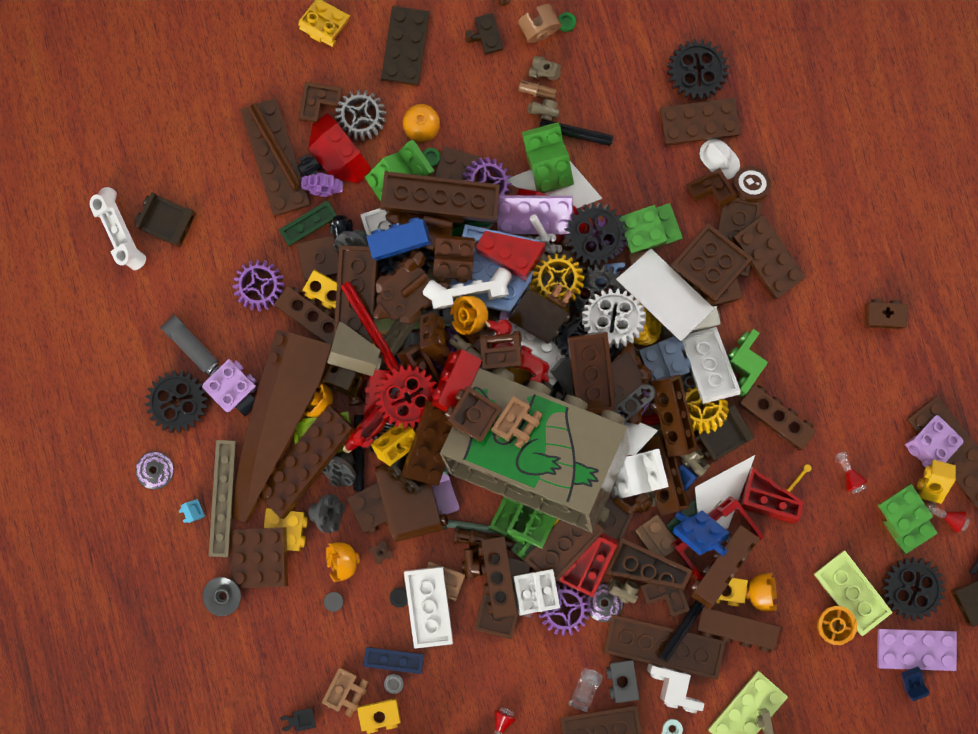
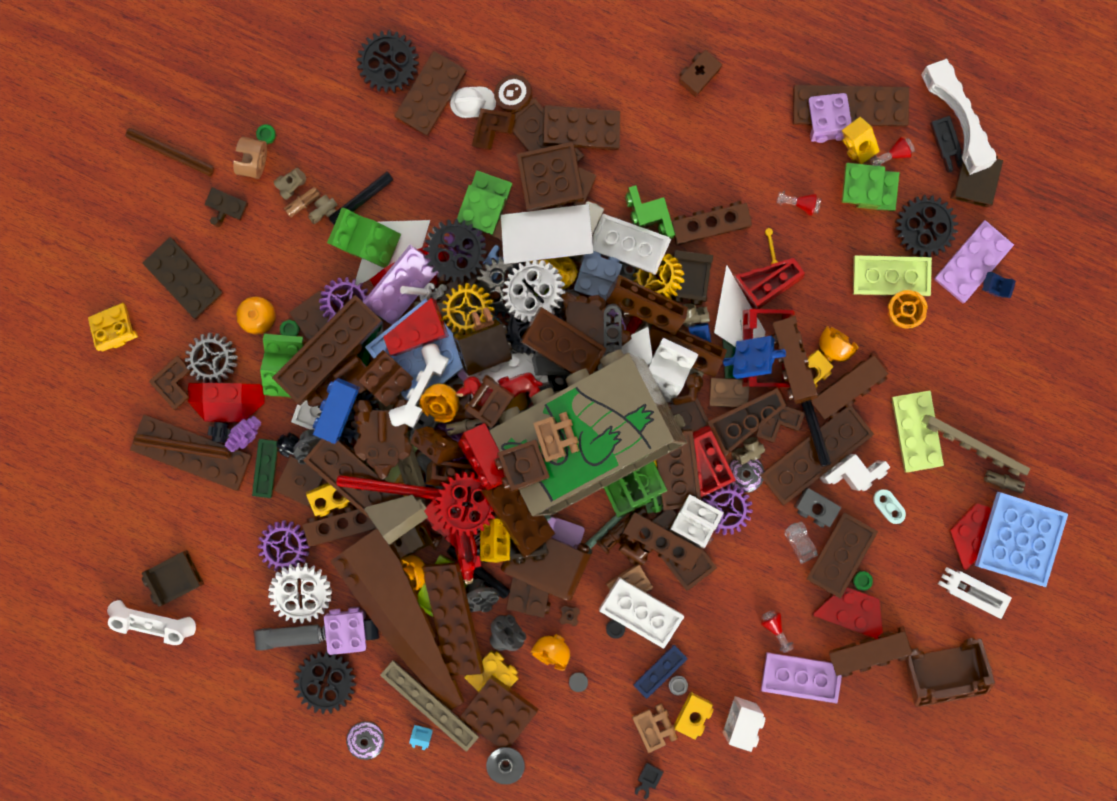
camera: 45 degrees left, 5 degrees up
(221, 312) = (318, 592): none -> white gear

